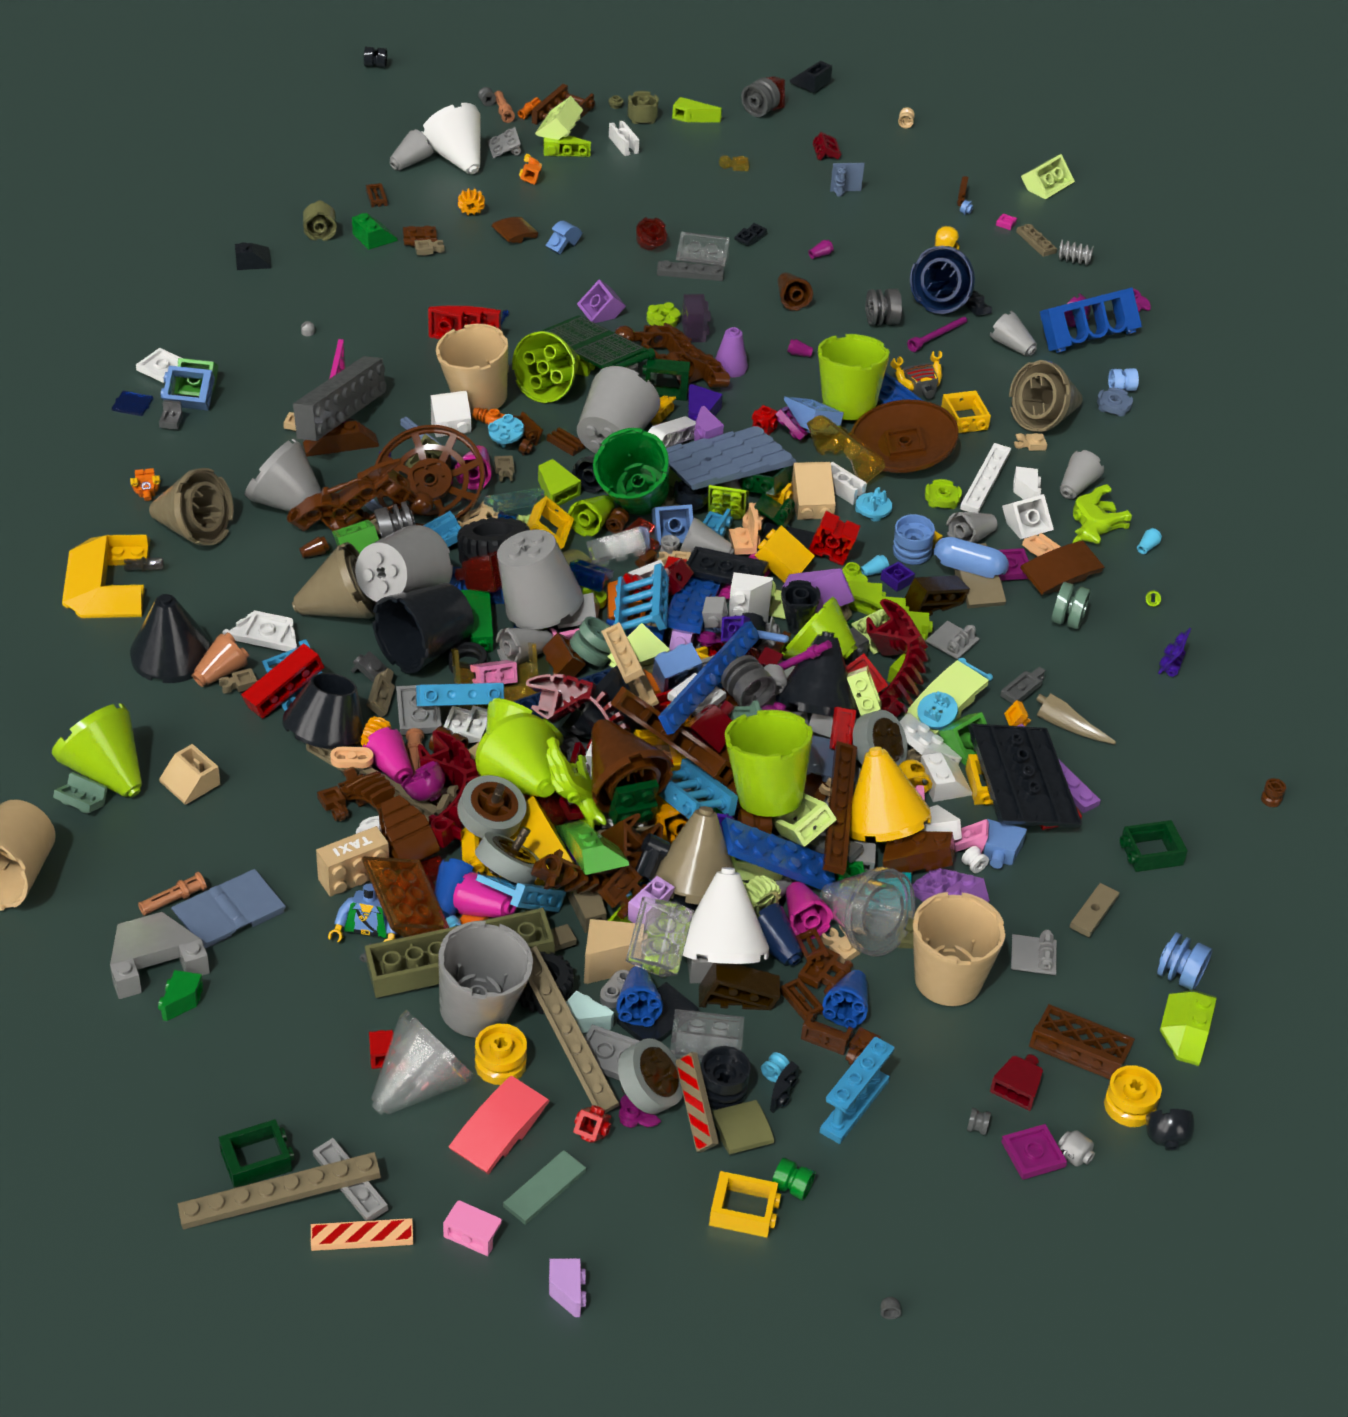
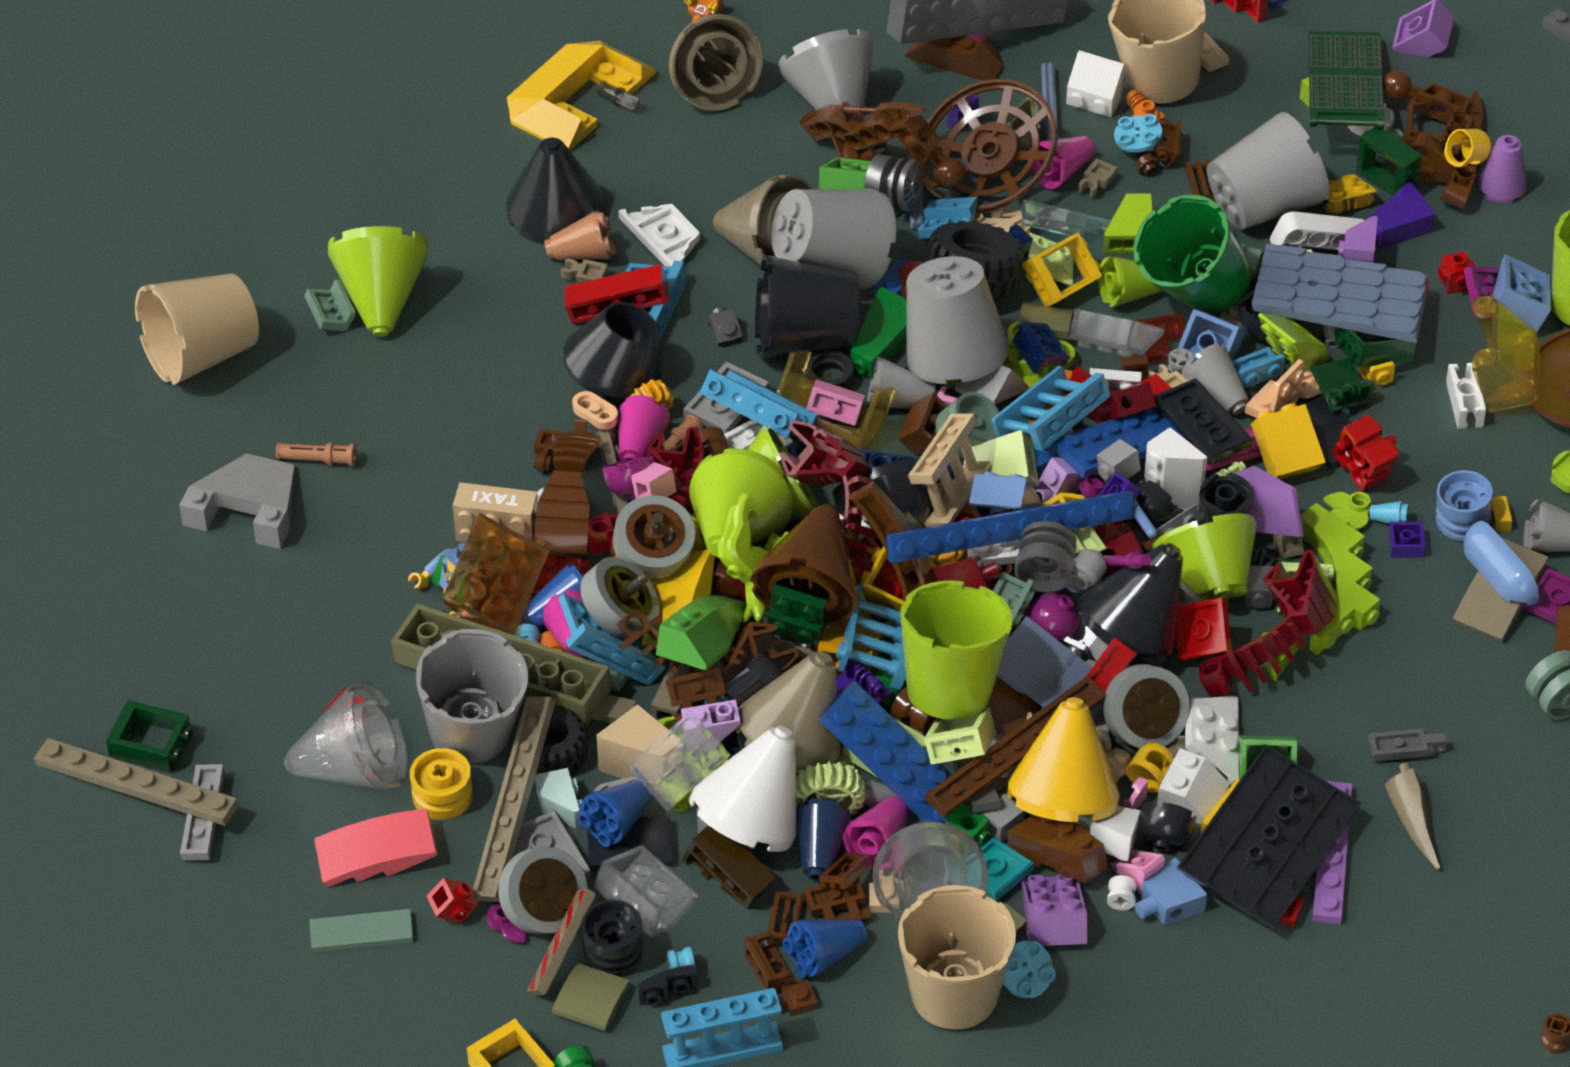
camera: 45 degrees right, 5 degrees up
(181, 994) = (230, 552): green slope -> none
(190, 774) = (441, 343): tan slope -> none
(229, 906) = (351, 495): sand blue piece -> none
(315, 547) = (802, 166): reddish brown cone -> none
(361, 1234) = (167, 866): light nougat tile -> none
(381, 693) = (709, 357): dark tan hinge -> none
(451, 777) = (654, 481): none -> bright pink brick
(471, 1227) = (256, 919): bright pink panel -> none
(544, 366) = (1257, 79): lime cone -> none
(566, 1283) = (285, 1024): lavender slope -> none
(617, 520) = (1153, 303): reddish brown wheel -> none
(663, 314) = (1498, 79): lime plate -> none
(695, 317) = (1509, 102): clear purple brick -> none
(708, 346) = (1474, 144): none -> yellow helmet
(812, 490) = (1411, 386): tan slope -> none
(865, 689) = (1192, 640): yellowish green window -> none
(874, 505) = (1476, 442): medium azure plate -> none
(933, 718) = (1252, 718): medium azure plate -> none
(936, 593) = (1418, 582): dark brown wedge -> none
(953, 639) = (1387, 646): light grey hinge -> none
(958, 682) = (1296, 704): yellowish green slope -> none
(961, 803) = (1166, 825): none -> black cylinder
(989, 676) = (1371, 678): medium azure hinge -> none
(1017, 714) = (1356, 770): light orange tile -> none
(1034, 953) = (1074, 1026): light grey hinge -> none
(1094, 910) = (1191, 1024): dark tan tile -> none
(1163, 830) = (1346, 982): dark green window -> none

